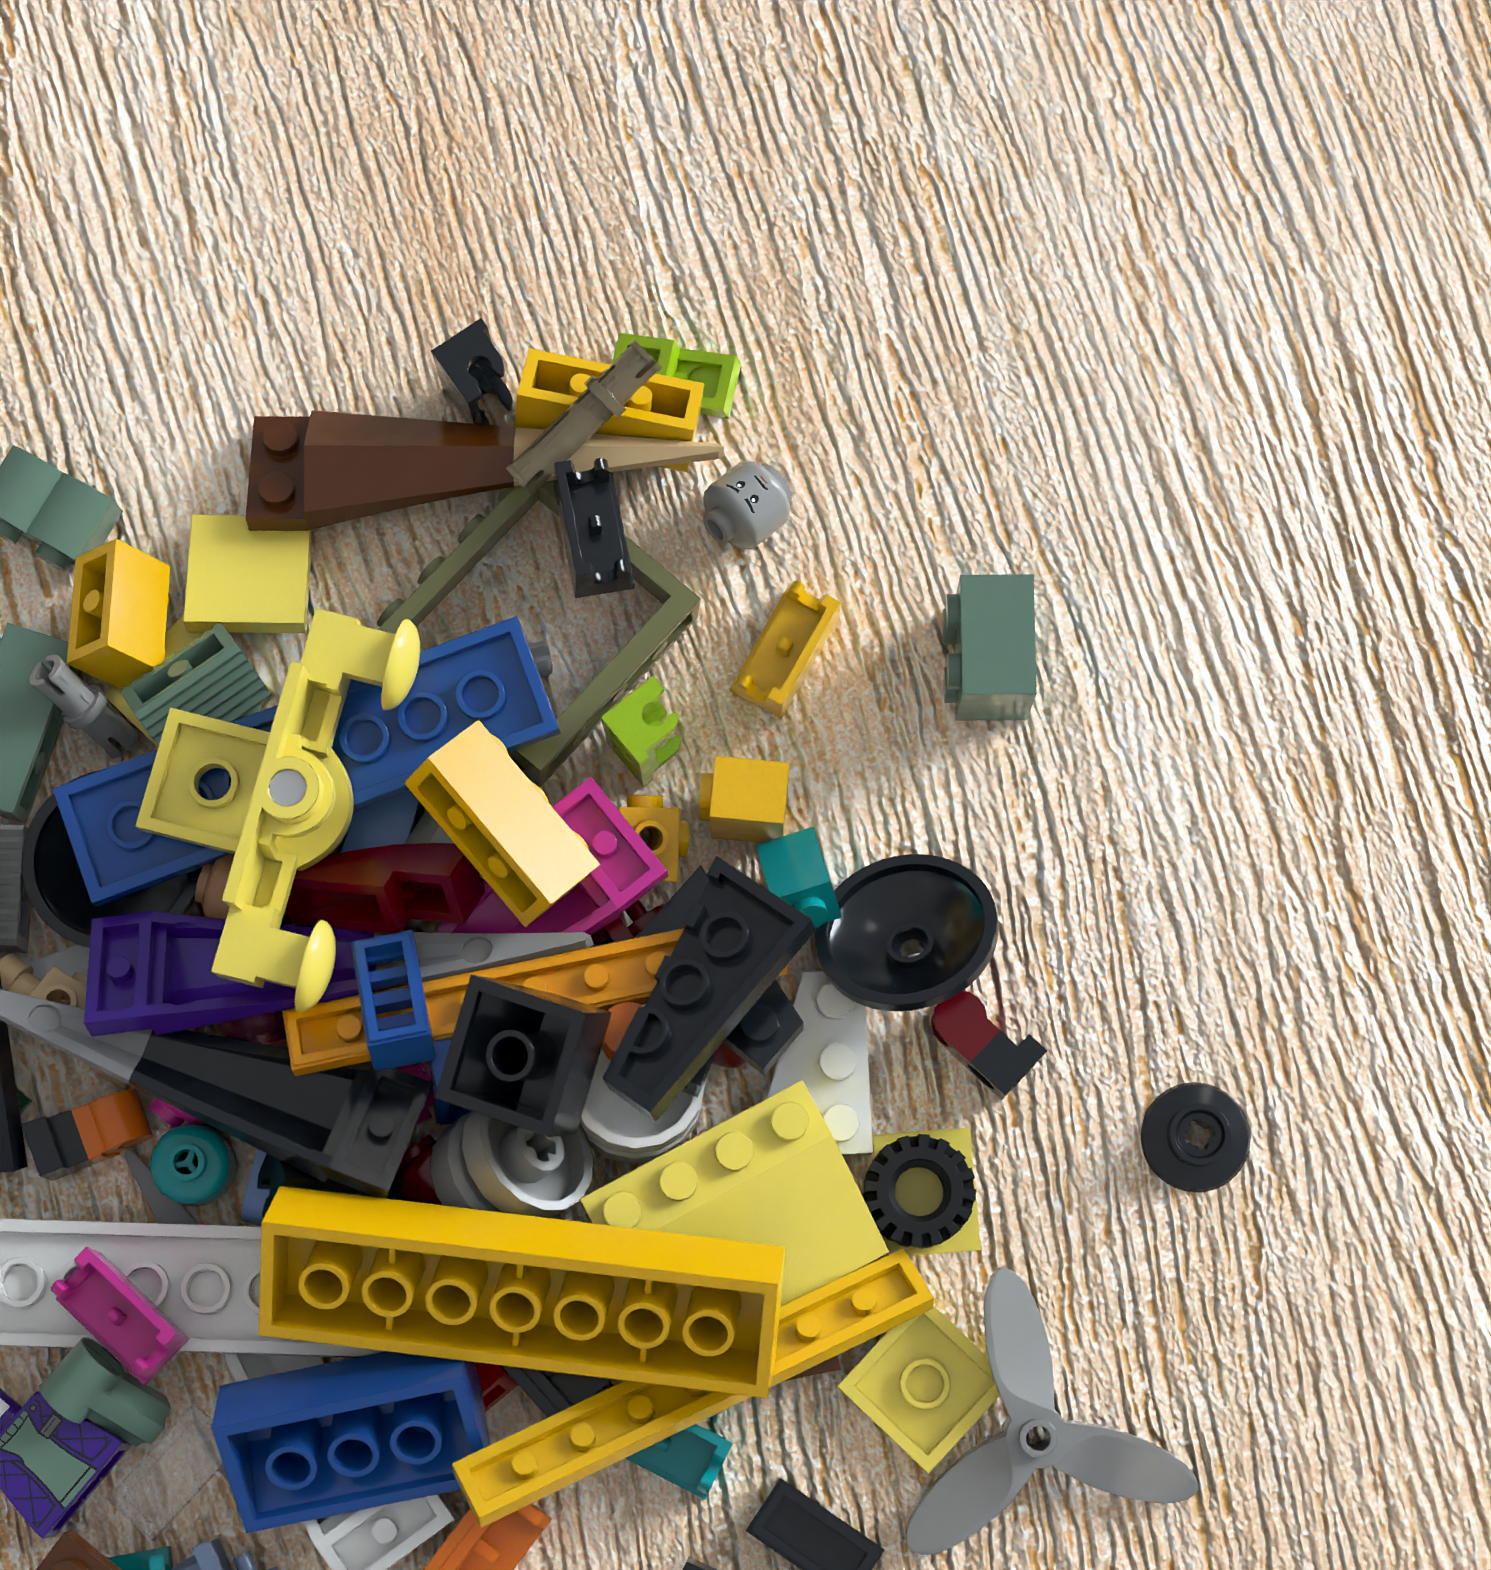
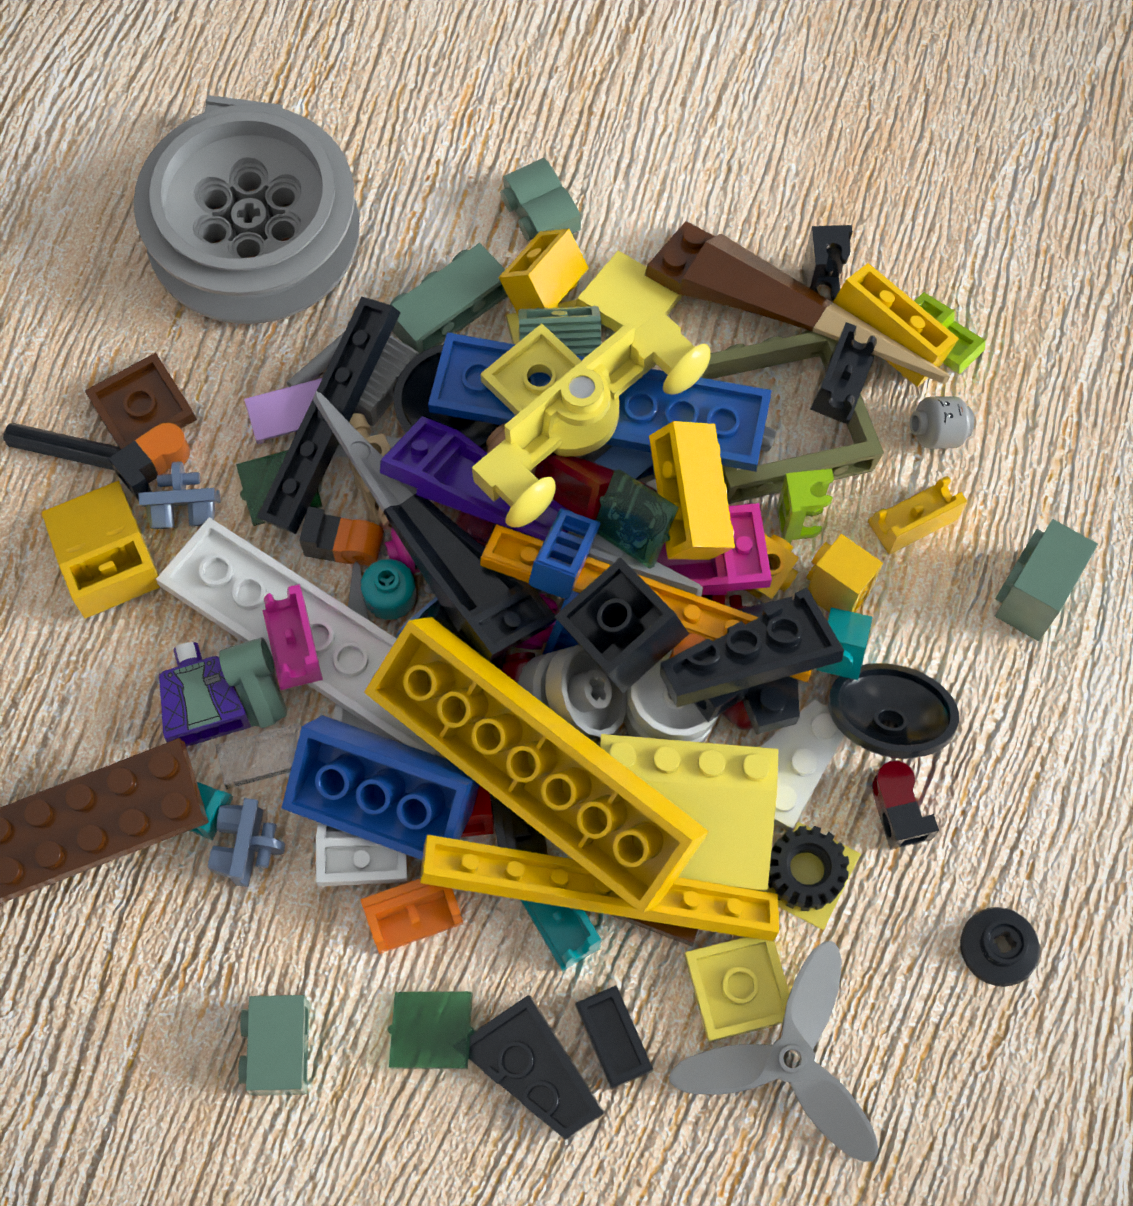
camera: 30 degrees right, 10 degrees down
(83, 706) = (492, 307): light grey pin -> none
(453, 902) = (635, 518): none -> clear green piece
(584, 417) = (879, 310): dark tan pin -> none

